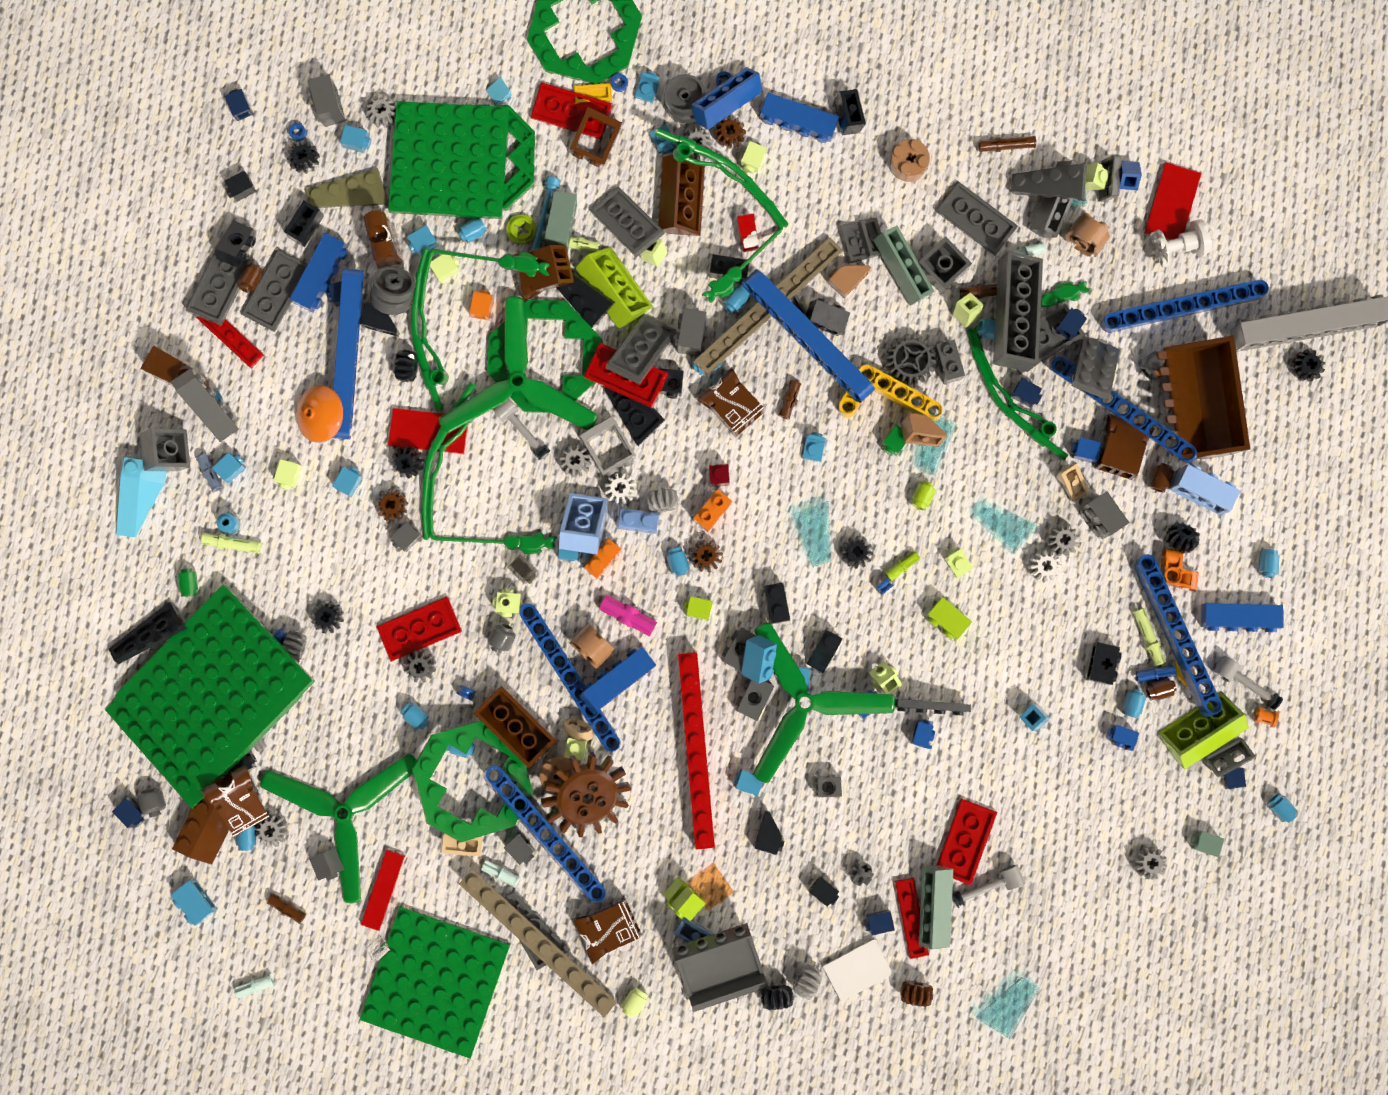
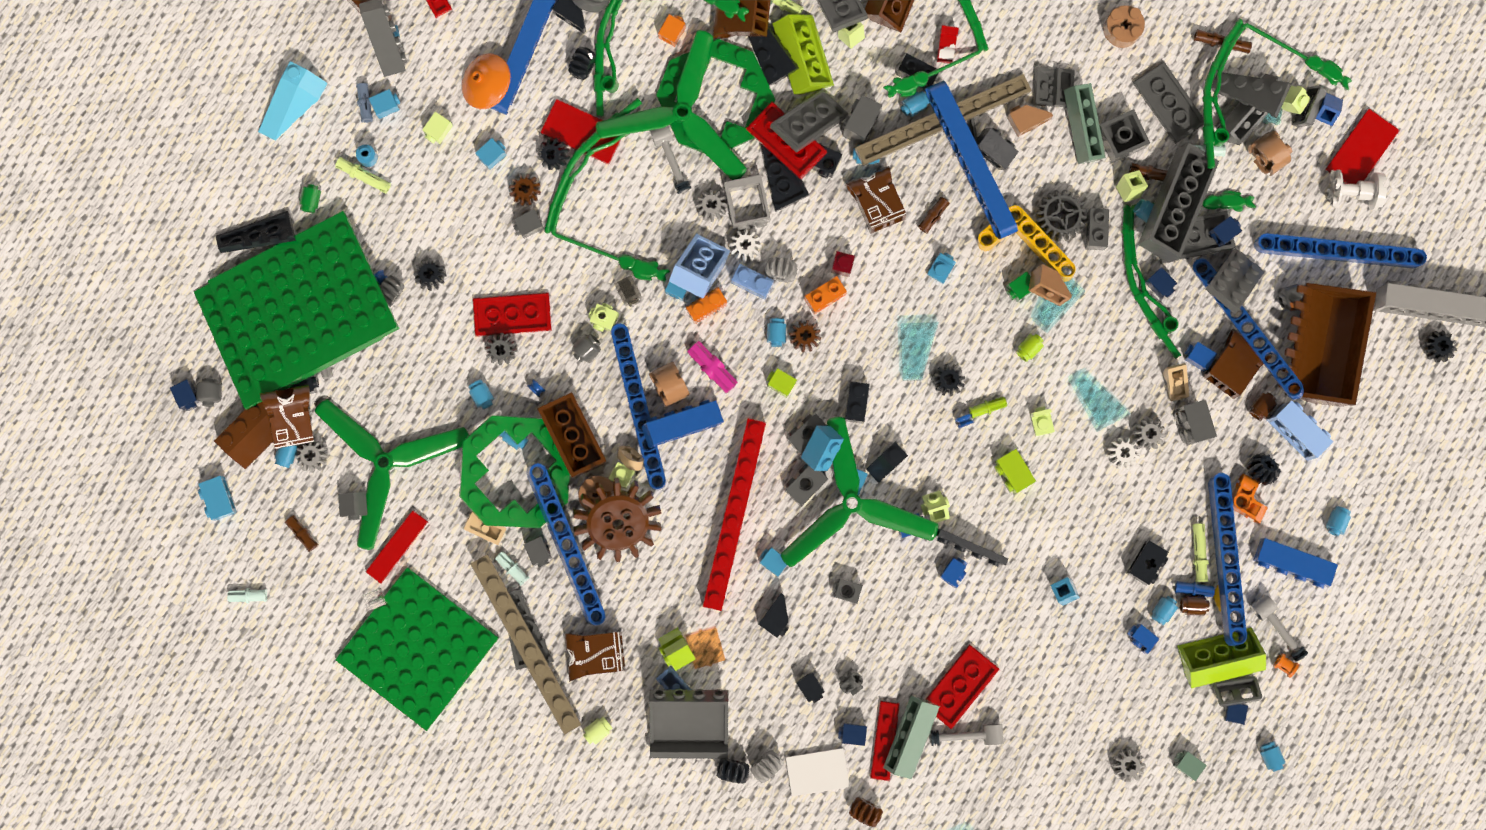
camera: 15 degrees right, 0 degrees up
(165, 449) = (330, 67): dark grey brick -> none
(1033, 238) = (1325, 68): none -> green piece

